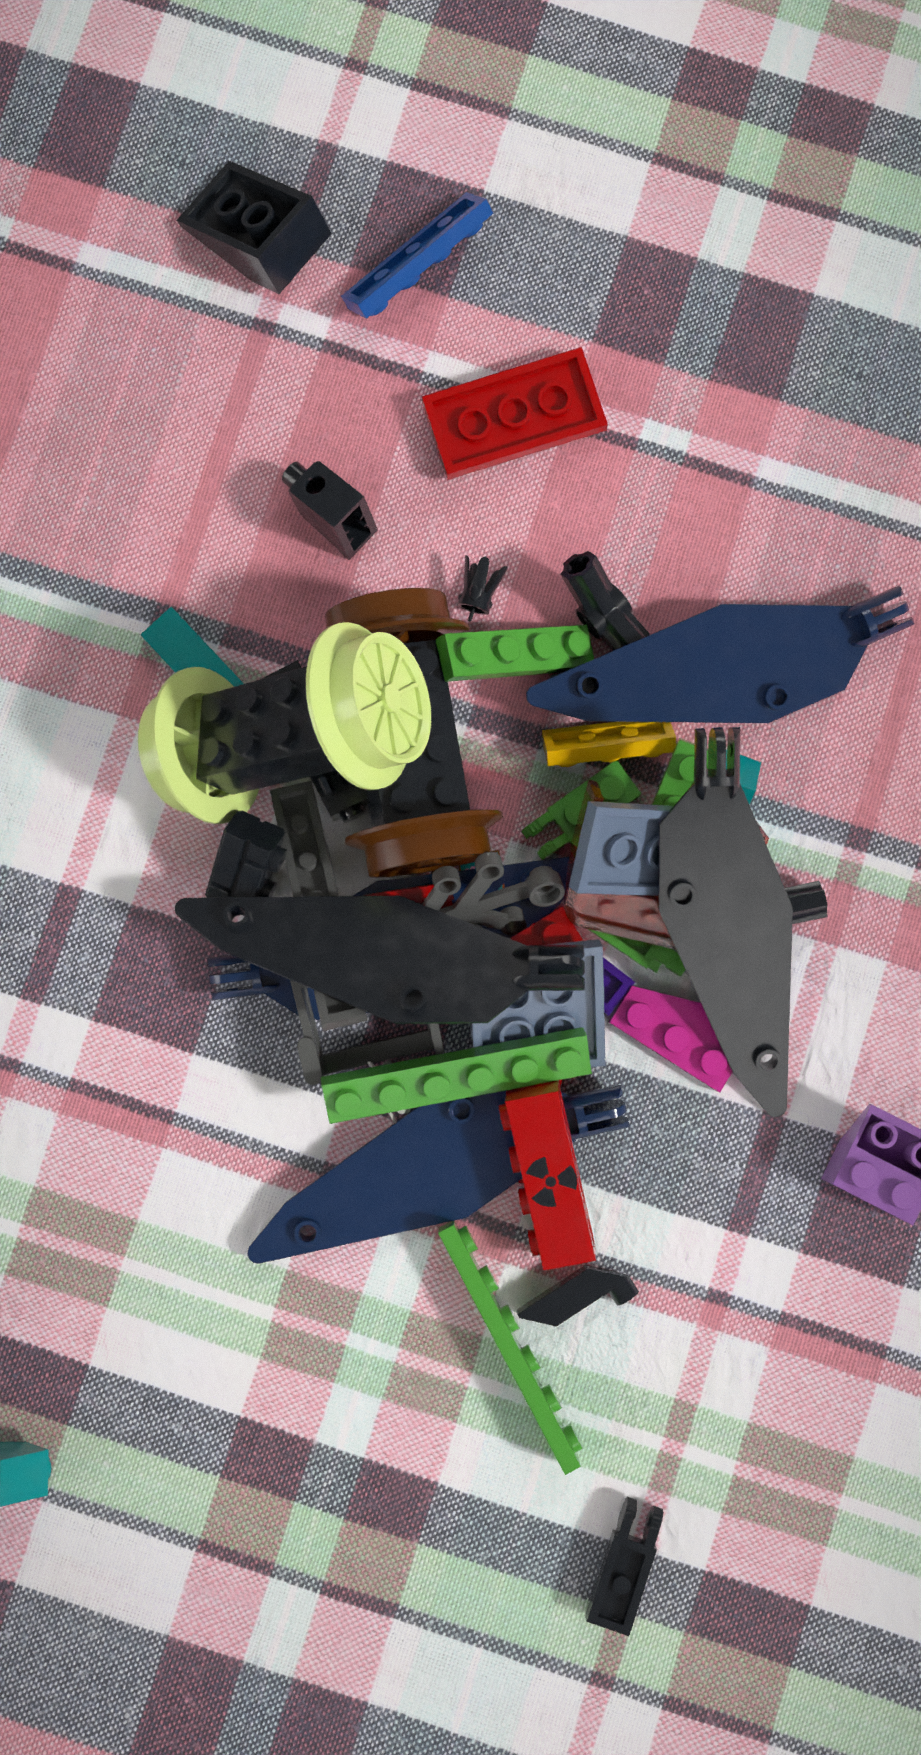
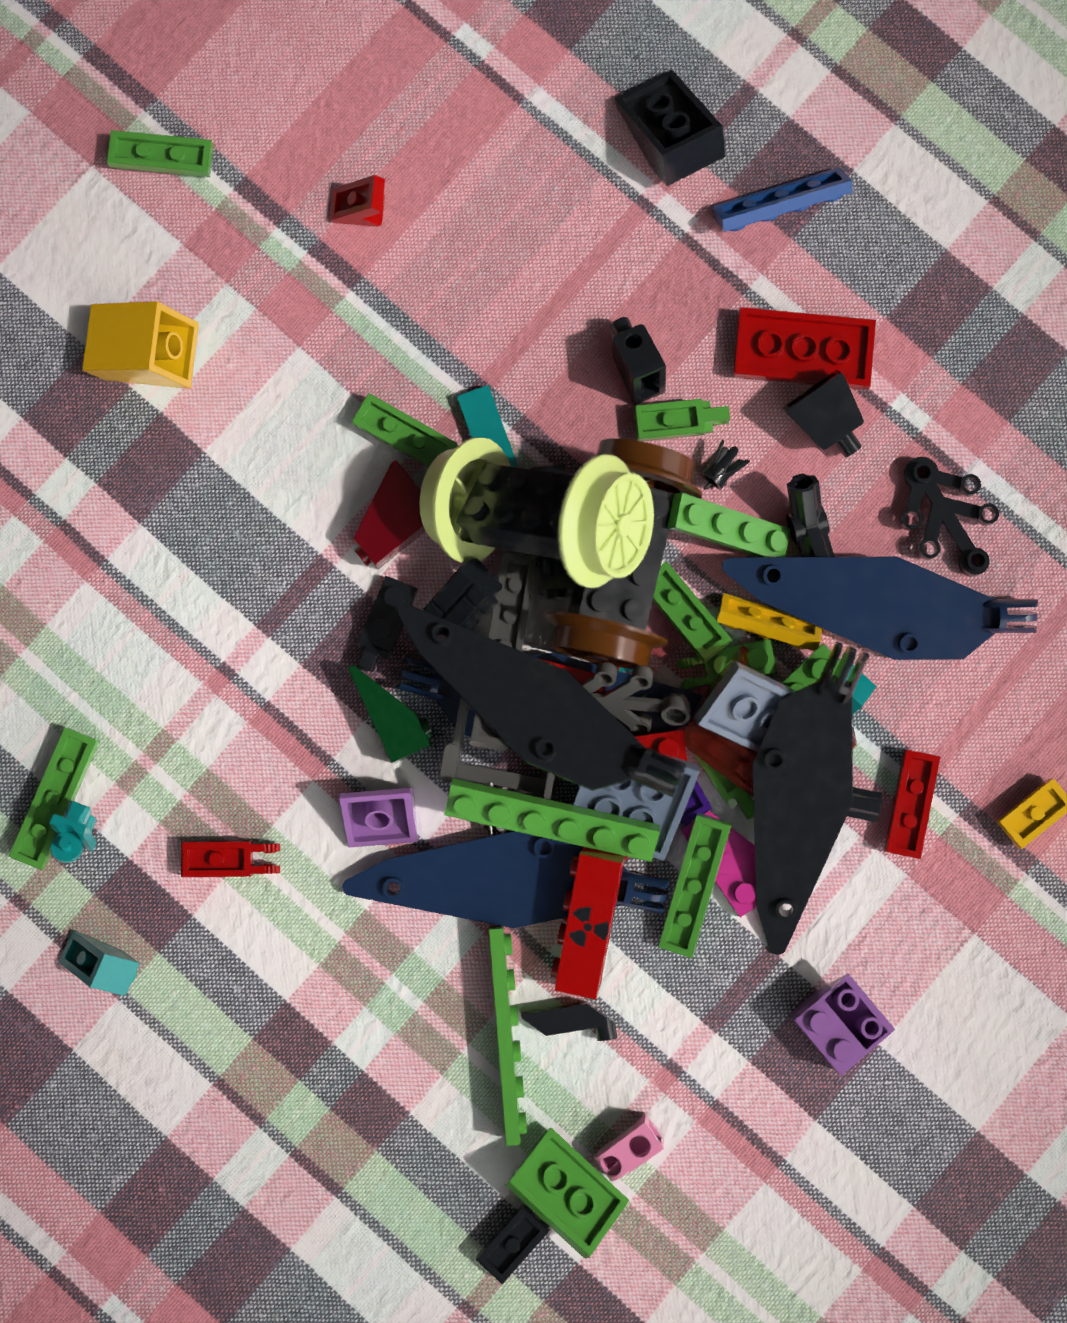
camera: 25 degrees right, 0 degrees up
(90, 701) = (401, 431): none -> bright green plate
(98, 1283) = (225, 859): none -> red hinge
(122, 808) = (391, 519): none -> dark red slope
(166, 934) = (383, 623): none -> black hinge
(228, 1040) = (396, 724): none -> dark green slope
(256, 1157) = (379, 817): none -> medium lavender slope
(405, 553) = (677, 419): none -> bright green hinge
(512, 772) = (688, 615): none -> bright green plate
(574, 475) = (828, 414): none -> black torso
(652, 1078) = (695, 885): none -> bright green plate
(658, 1497) = (567, 1193): none -> bright green plate
(708, 1413) = (630, 1149): none -> bright pink leg
(752, 531) = (944, 511): none -> black plant
(858, 878) = (912, 804): none -> red plate

